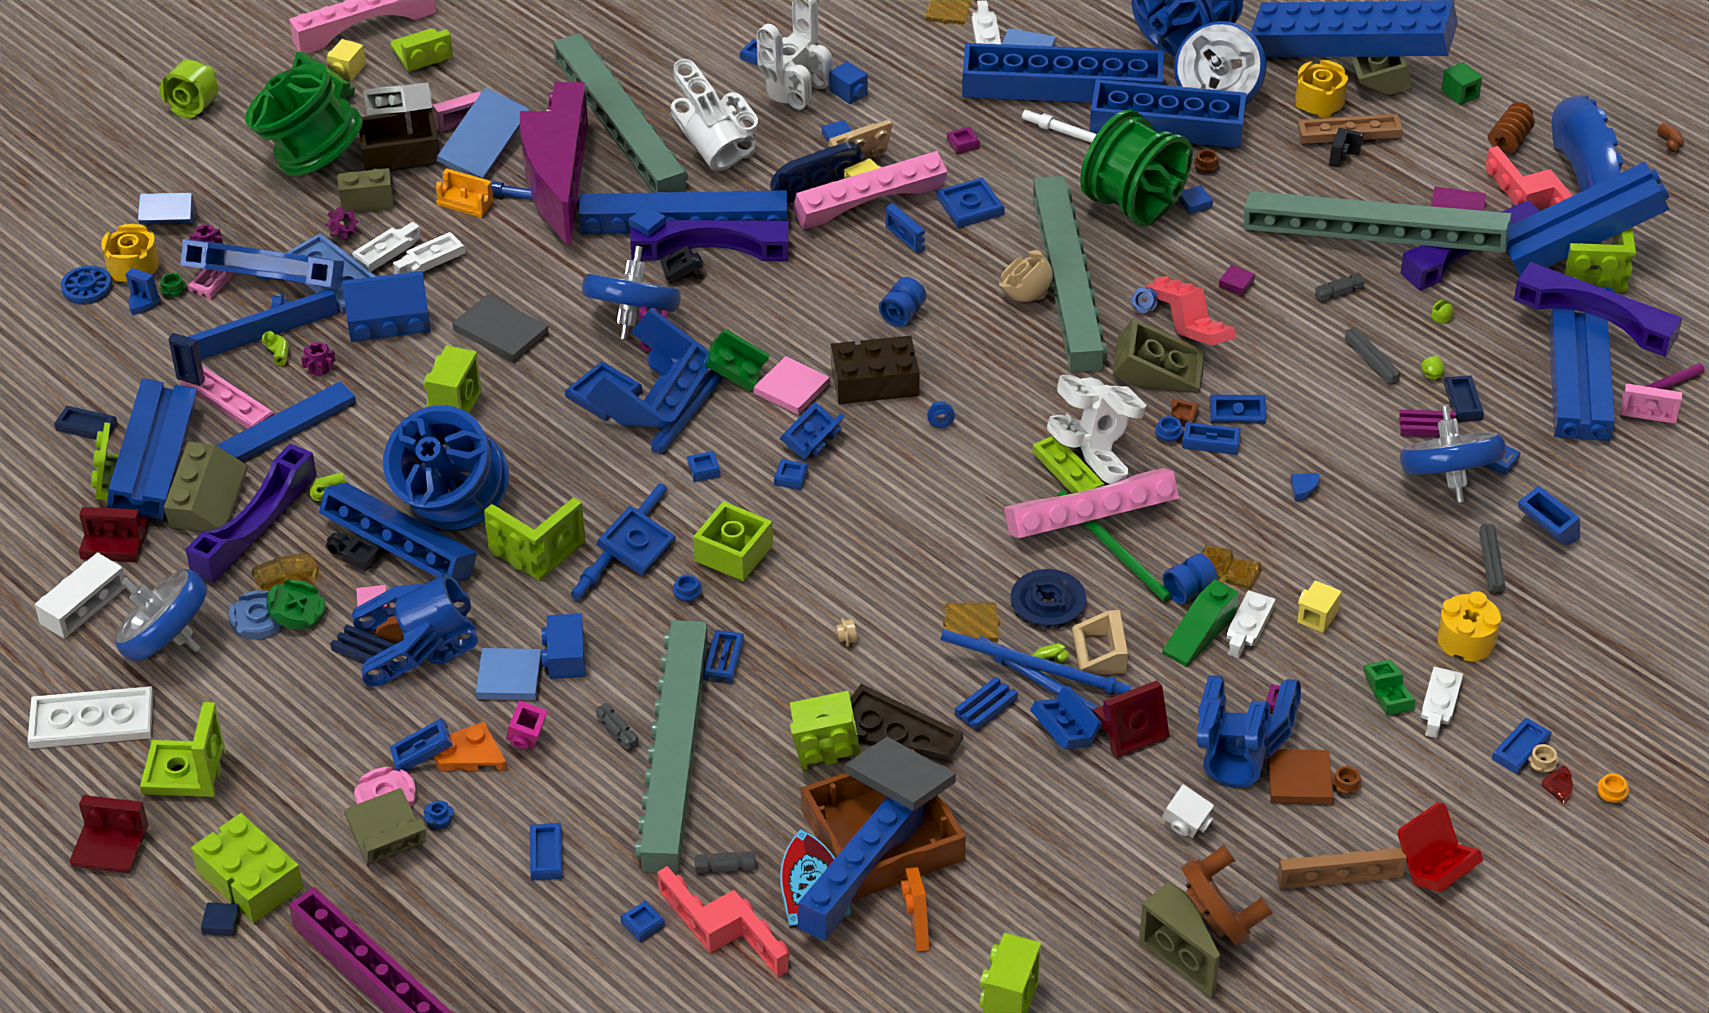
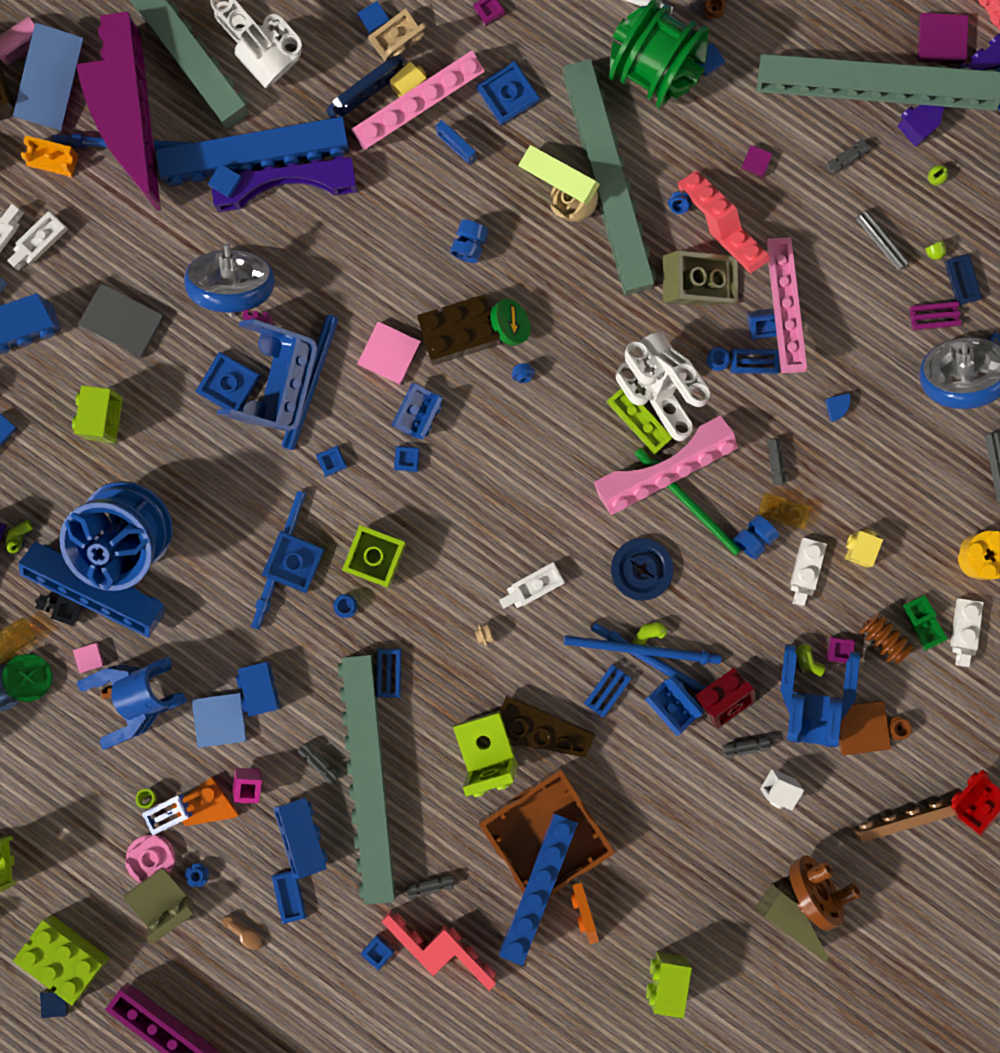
camera: 10 degrees left, 40 degrees up
(364, 641) = (76, 704): dark blue tile -> none
(399, 729) = (143, 795): none -> lime hinge
(482, 885) = (247, 936): none -> medium nougat piece
(536, 549) = (221, 591): lime bracket -> none
(577, 785) = (300, 837): none -> blue brick
(682, 263) = (266, 220): black bracket -> none
(736, 359) = (336, 342): green bracket -> none
(800, 868) = (497, 900): shield -> none
(900, 773) = (556, 809): dark grey tile -> none
(912, 596) = (533, 586): none -> white hinge
(935, 366) = (511, 322): none -> green tile
(972, 619) = (582, 602): clear yellow piece -> none
(1012, 252) = (559, 175): none -> yellowish green tile
(1108, 624) = (703, 612): tan tile -> none
(1150, 776) = (746, 747): none -> dark grey axle
(1184, 411) = (728, 334): dark orange tile -> none
(1202, 623) = (770, 583): green slope -> none
(1225, 523) = (776, 461): none -> dark grey axle
(1235, 699) = (807, 662): none -> lime arm
(1251, 384) = (786, 305): none -> bright pink plate
(1335, 687) = (886, 638): none -> dark orange piece

